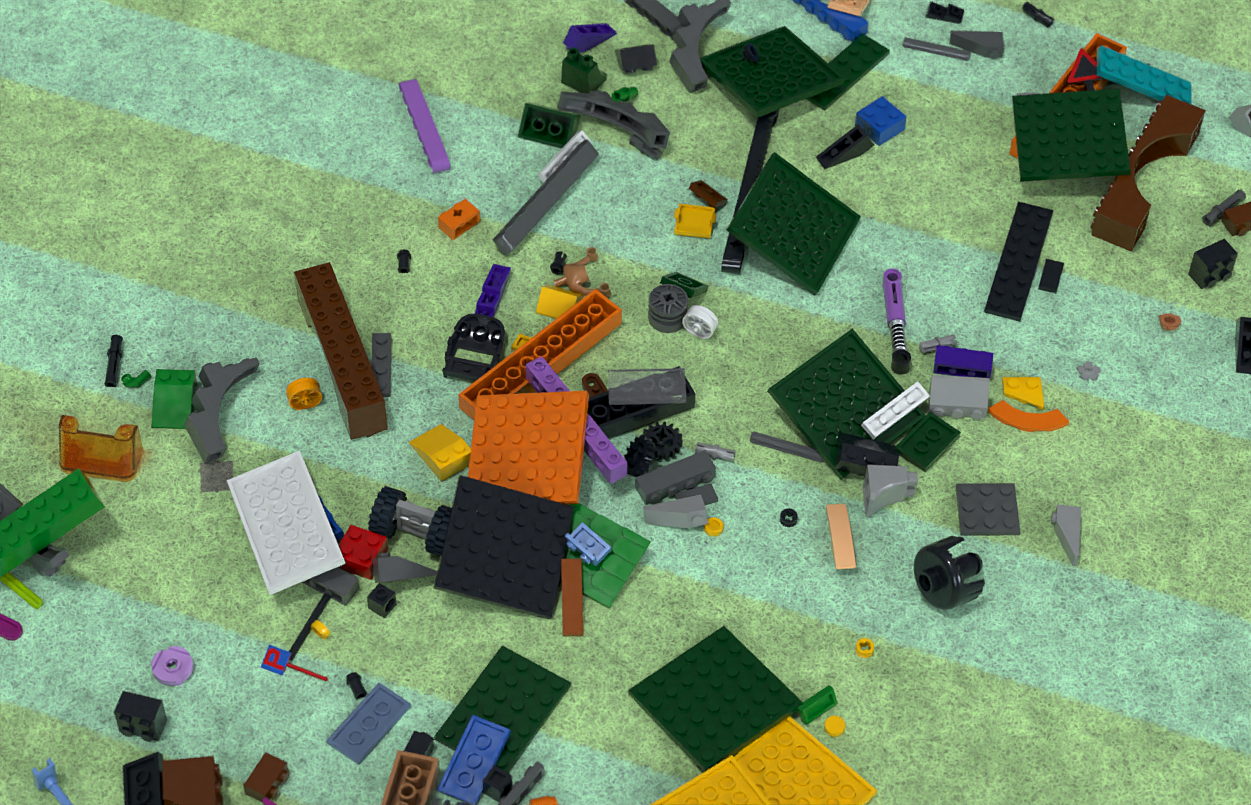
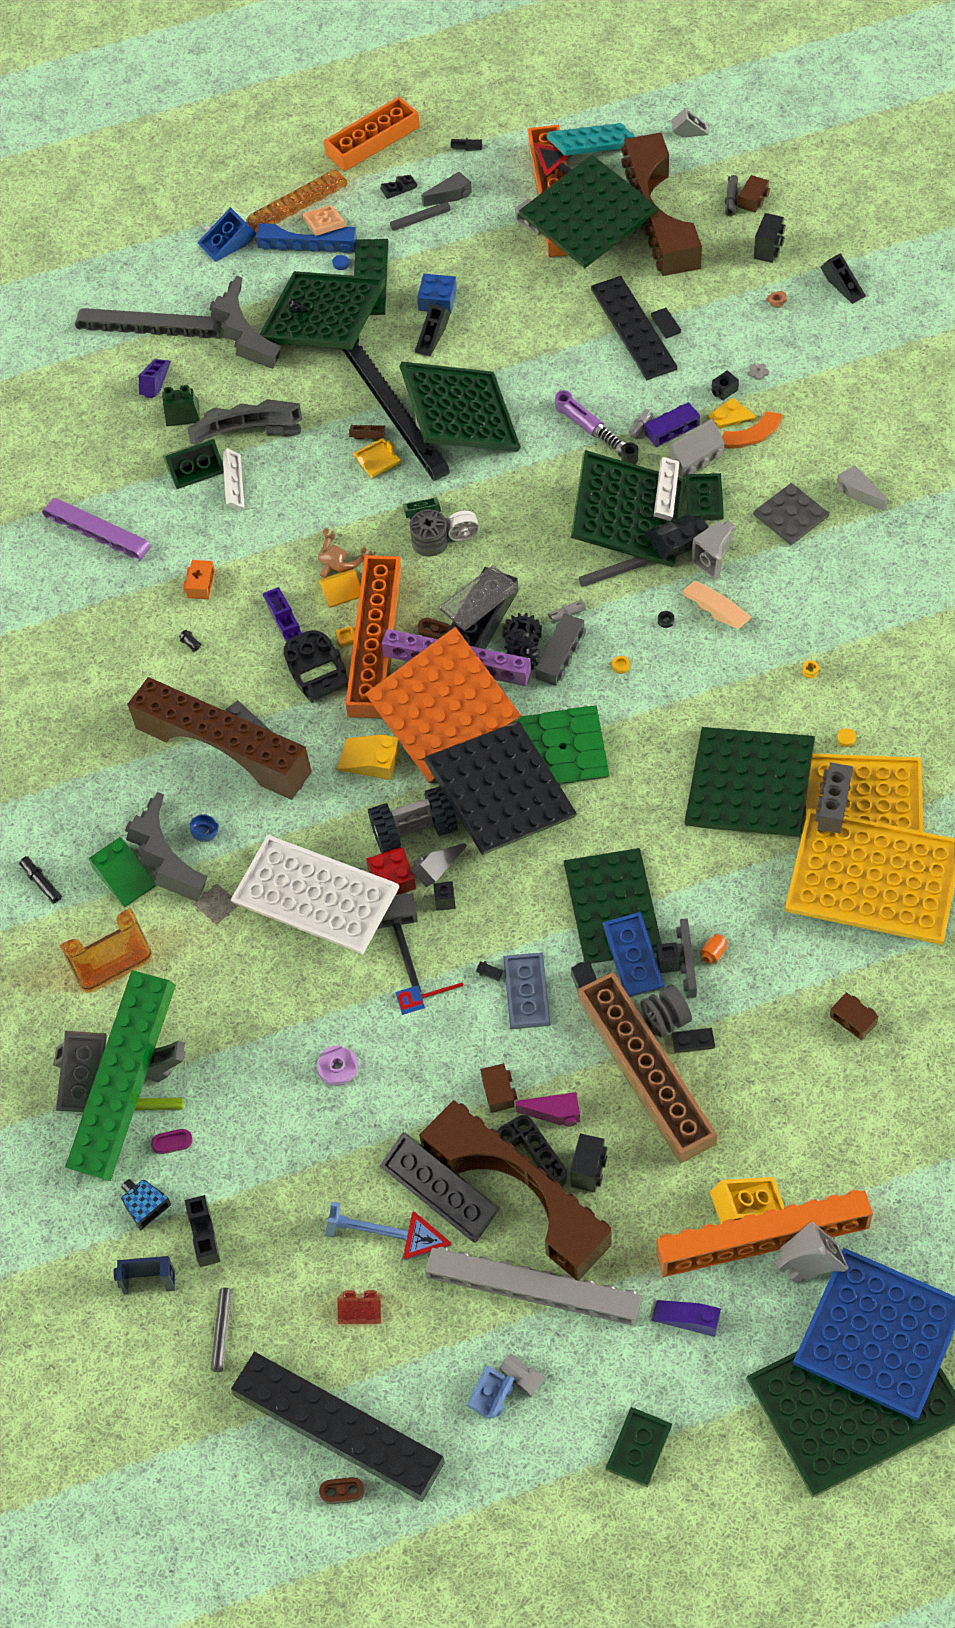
camera: 35 degrees left, 5 degrees up
(129, 381) = (72, 884): green arm -> none
(140, 716) = (359, 1119): black brick -> none
(262, 408) = (200, 825): none -> blue hair
(303, 393) = (223, 791): light orange wheel -> none
(320, 629) = (420, 952): yellow tile -> none
(545, 197) = (249, 517): dark grey beam -> none
(558, 263) = (311, 561): black pin -> none
(572, 597) = (578, 788): dark orange tile -> none
(588, 544) = (556, 740): medium blue bracket -> none
(624, 94) = (232, 400): green pin -> none
(636, 57) = (207, 368): black slope -> none
(681, 513) = (591, 671): light grey slope -> none
(707, 492) = (587, 653): dark grey tile -> none
(759, 762) = (834, 797): none -> dark grey brick
(817, 704) = (822, 731): green tile -> none
(831, 44) = (340, 262): none -> blue tile
(943, 577) = (818, 576): black piece -> none
(1042, 362) = (724, 385): none -> black brick

